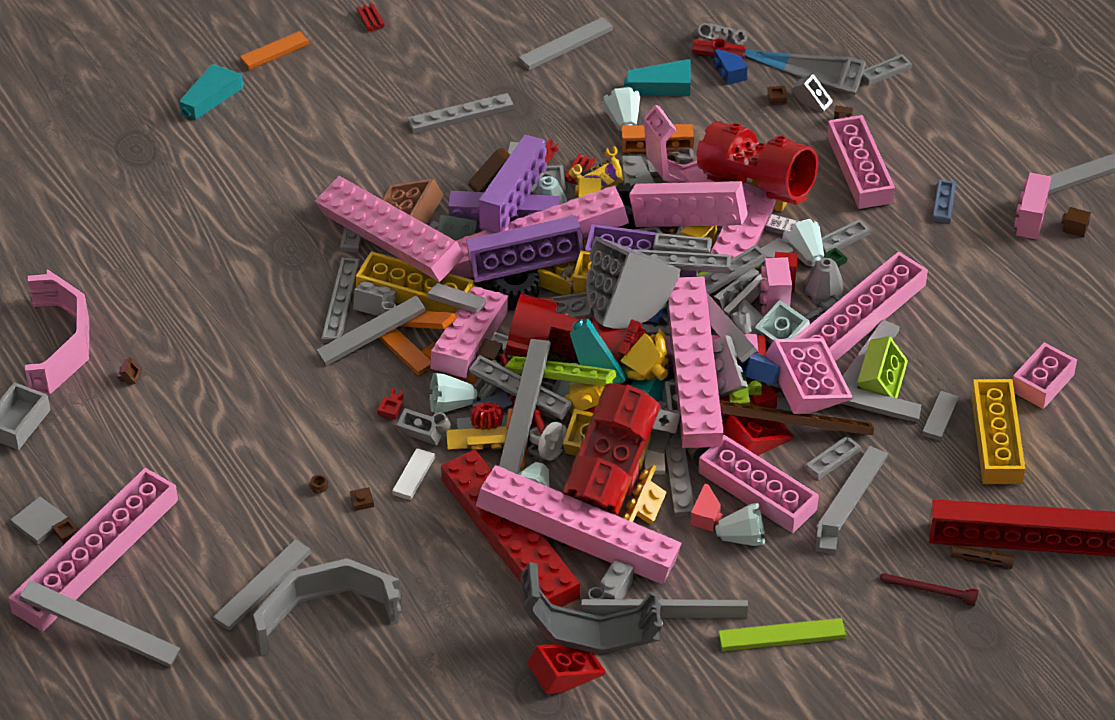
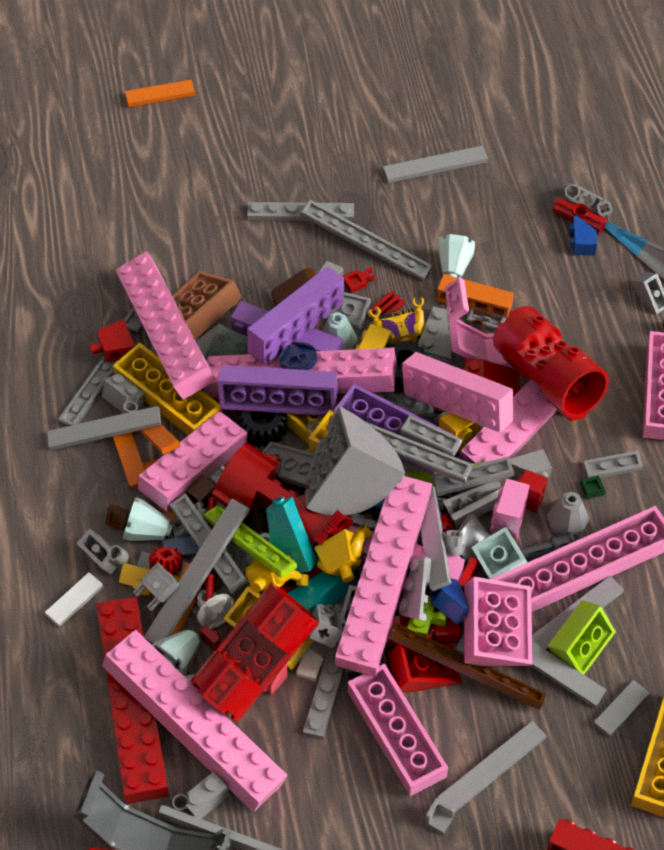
camera: 20 degrees right, 10 degrees up
(210, 90) = (79, 120): teal slope -> none
(344, 259) = (113, 341): none -> red torso
(361, 499) = (13, 610): reddish brown plate -> none
(367, 9) = (263, 73): red tile -> none
(391, 406) = (87, 517): red plate -> none
(420, 398) = (117, 517): none -> reddish brown tile
(456, 298) = (192, 422): light grey tile -> none
(492, 430) = (159, 583): none -> light grey piece
(530, 215) = (299, 356): none -> dark blue tile
(534, 119) = (366, 240): none -> light grey tile
(556, 465) = (210, 637): none -> red plate
(646, 498) = (279, 709): yellow bracket -> none
(661, 79) = (507, 232): teal slope -> none
(706, 510) = (333, 741): coral slope -> none
(742, 526) = (361, 775): light aqua cone -> none
(777, 94) = (616, 282): reddish brown plate -> none
(779, 224) = (559, 435): tile -> none
(806, 241) = (568, 463): light aqua cone -> none
(832, 458) = (489, 720): light grey tile -> none

